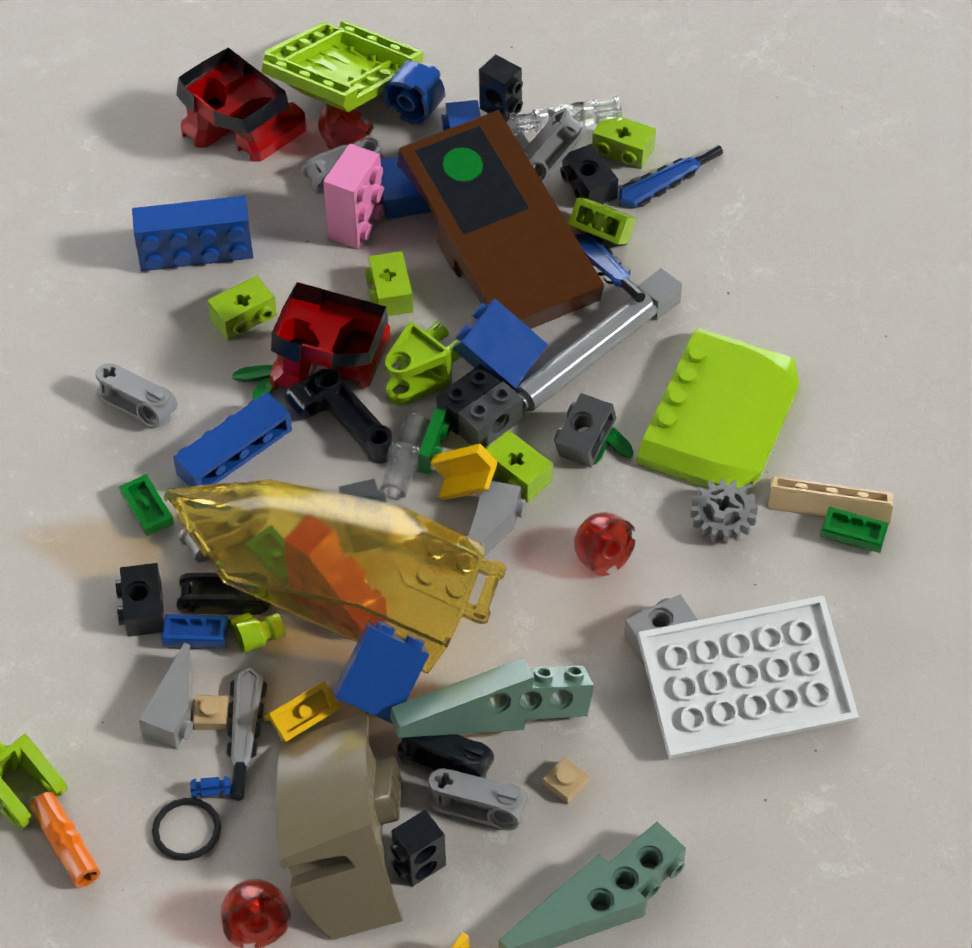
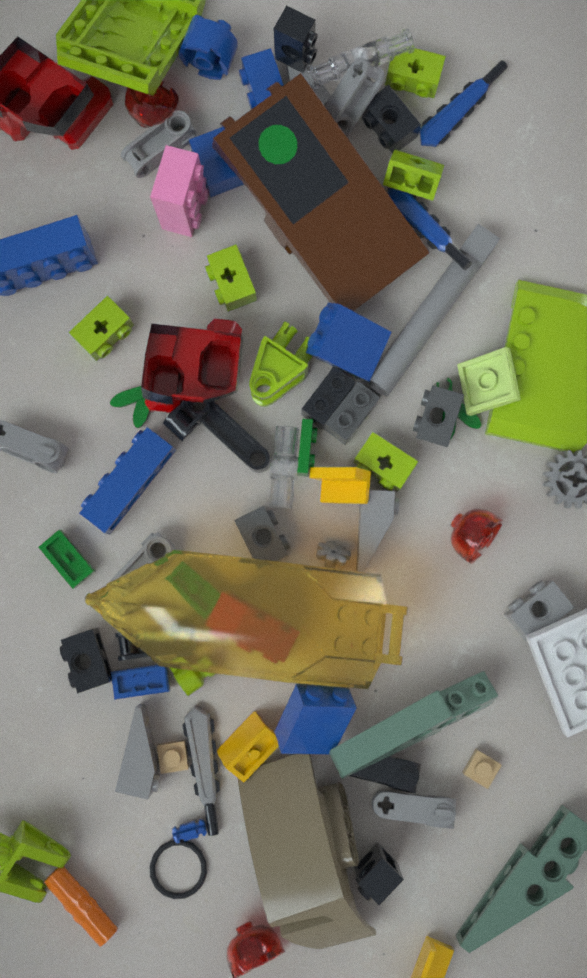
camera: 10 degrees left, 30 degrees up
(645, 406) = (488, 381): none -> yellowish green tile

